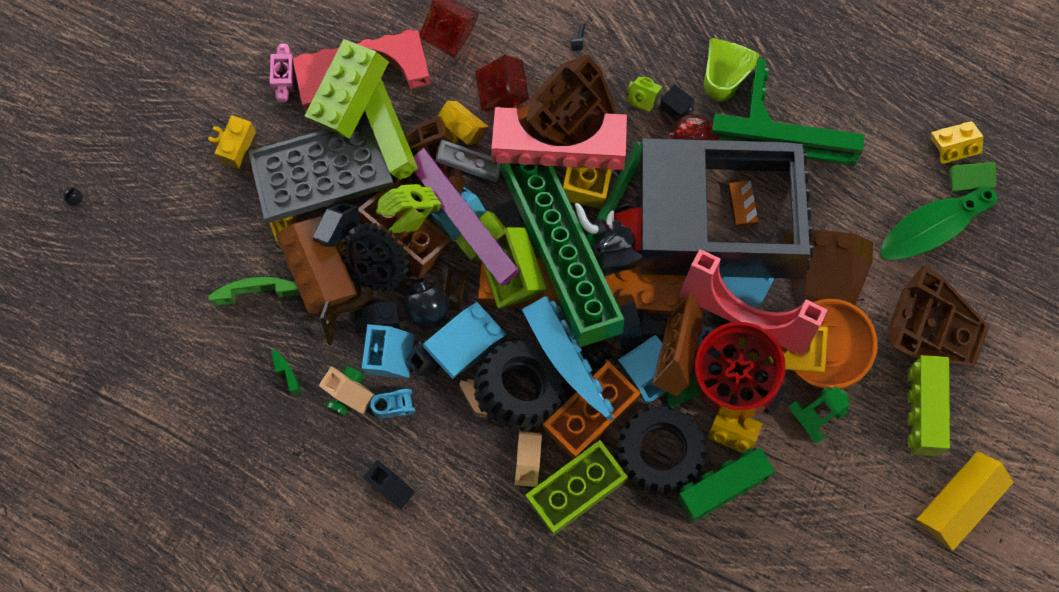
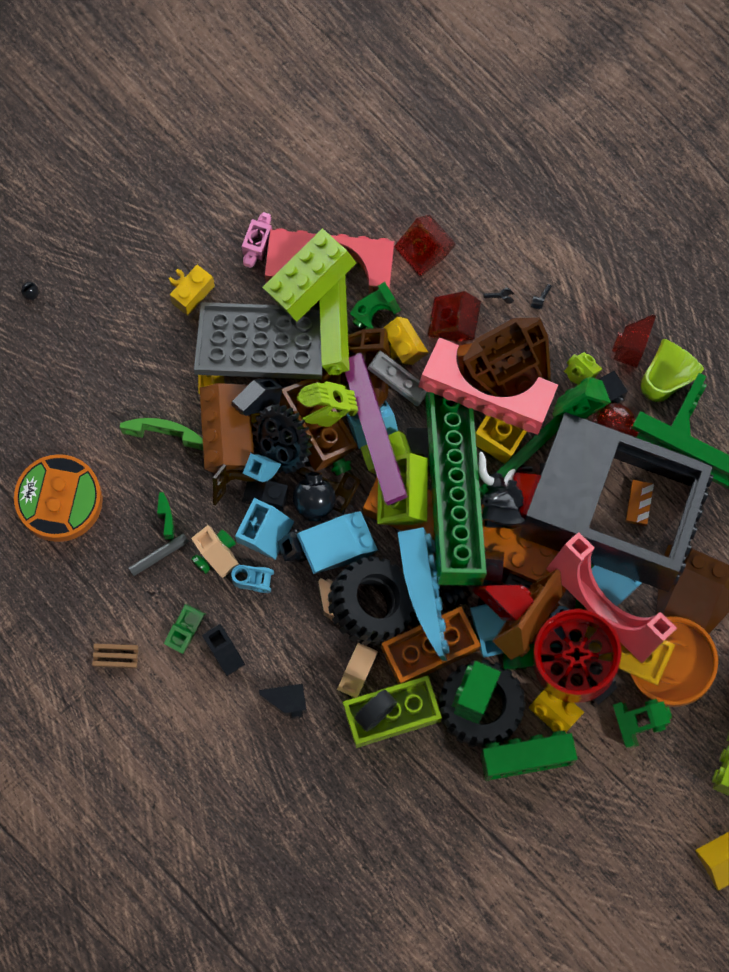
camera: 15 degrees right, 0 degrees up
(171, 391) = (58, 498): none -> brick
(263, 533) = (97, 655): none -> medium nougat tile
(291, 413) = (158, 554): none -> dark grey piece
(342, 477) = (184, 628): none -> green slope
(364, 292) = (261, 467): none -> medium azure brick
(413, 103) = (371, 304): none -> green tile
(442, 265) = (341, 466): none -> green plate
(468, 512) = (286, 699): none -> black slope
(542, 46) = (504, 294): none -> black hand
(561, 492) = (375, 710): none -> black tyre
(651, 341) = (505, 600): none -> red slope
(654, 439) = (478, 686): none -> green brick
(655, 121) = (583, 399): none -> green slope
(683, 50) = (632, 342): none -> clear red slope

